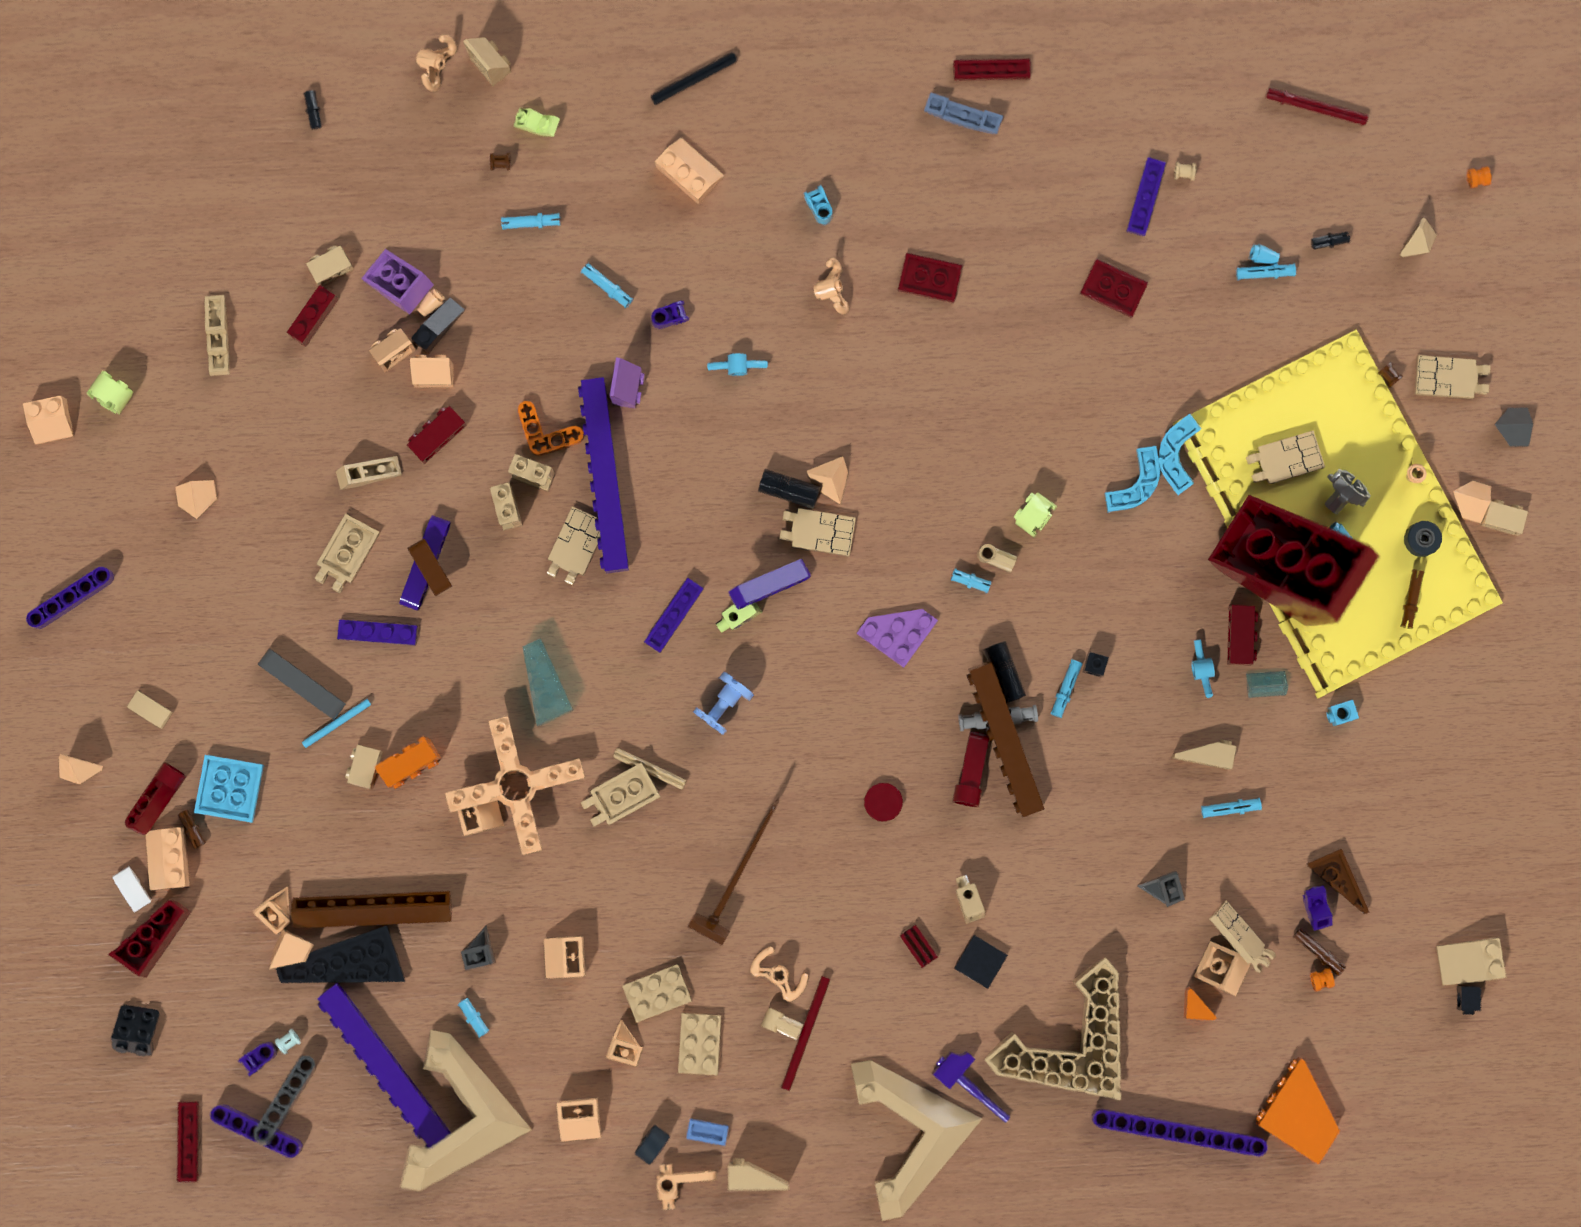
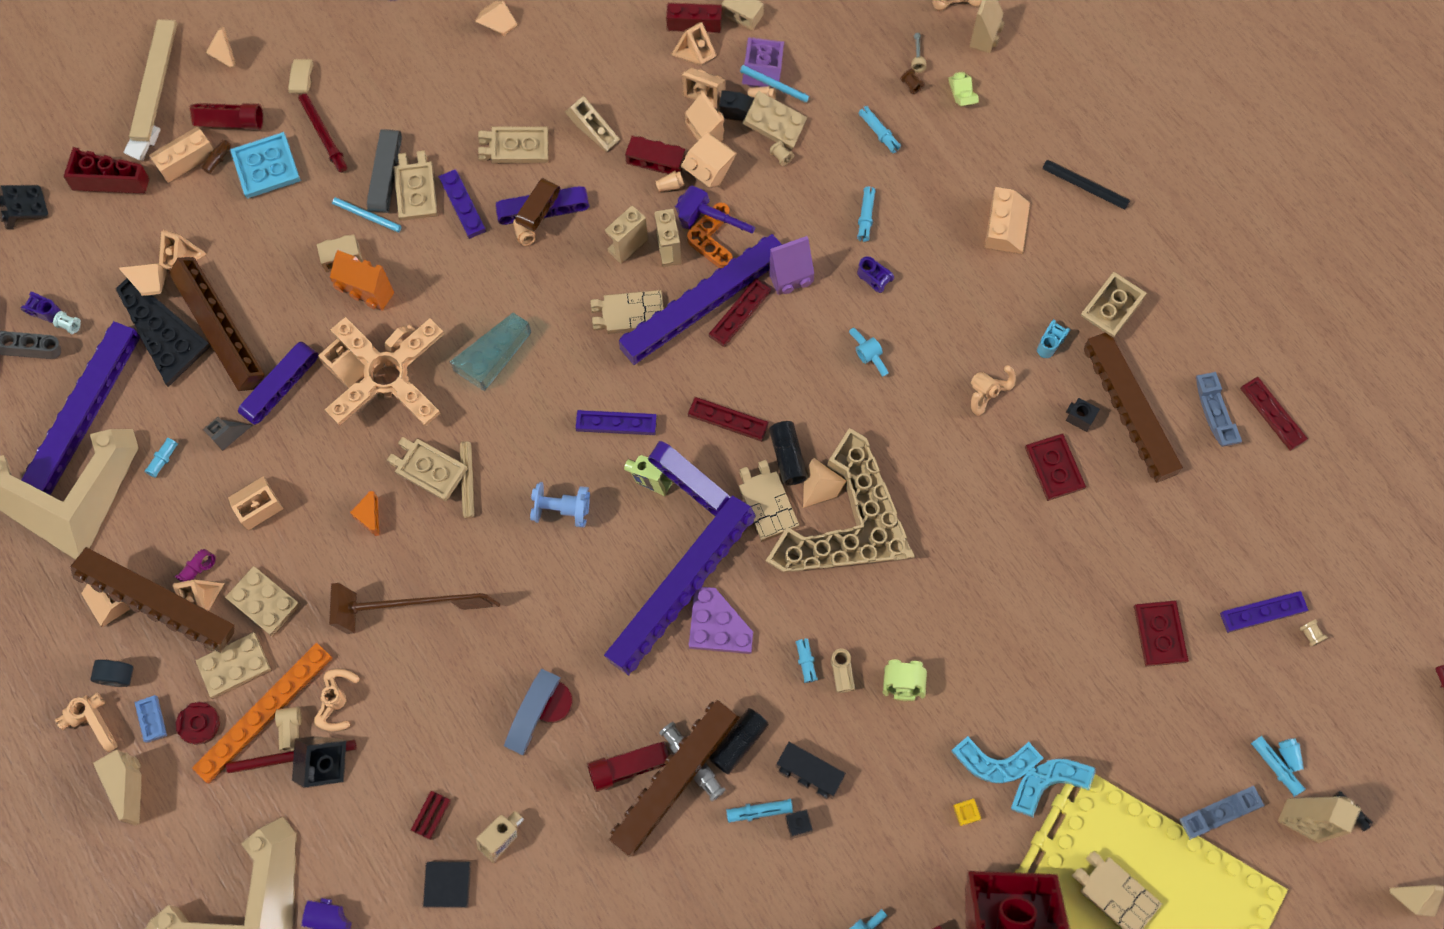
camera: 65 degrees right, 15 degrees down
(70, 847) = (153, 80): none -> tan tile
(225, 719) = (335, 155): none -> dark red axle
(336, 665) = (415, 188): none -> tan tile
(344, 332) = (695, 45): none -> light nougat slope
(430, 286) = (773, 83): none -> medium azure bar
(445, 597) = (524, 235): none -> light nougat cone
(462, 883) = (278, 383): none -> dark purple beam
(466, 308) = (774, 120): none -> tan plate
(471, 435) = (670, 182): none -> light nougat cone
(474, 391) = (709, 160): none -> light nougat slope
(484, 143) = (918, 60): none -> tan hinge
(487, 760) = (397, 338): none -> light nougat wing
(502, 322) = (781, 153): none -> tan bush
(506, 430) = (695, 202): none -> dark purple piece
(595, 1039) = (195, 566): none -> magenta connector
(611, 1081) = (152, 600): none -> reddish brown brick
(632, 868) = (367, 513): none -> orange slope
(633, 451) = (739, 312): none -> dark red tile
(726, 519) = (728, 419): none -> dark red tile
(732, 1096) = (197, 723): none -> dark red tile
(754, 1038) = (261, 713): none -> orange plate
(823, 137) = (1113, 304): none -> tan slope
(826, 1012) = (318, 761): none -> black slope
(850, 643) = (680, 585): none -> dark purple brick
(883, 821) = (530, 711): none -> sand blue slope
(902, 457) = (877, 529): none -> tan wedge
(905, 219) = (1089, 410): none -> black brick
(917, 180) = (1132, 407): none -> reddish brown brick
(1059, 631) = (810, 771): none -> black brick
(1160, 530) = (967, 812): none -> yellow tile
(1274, 339) = (1221, 812): none -> sand blue slope
(1323, 272) = (1320, 817): none -> tan wedge

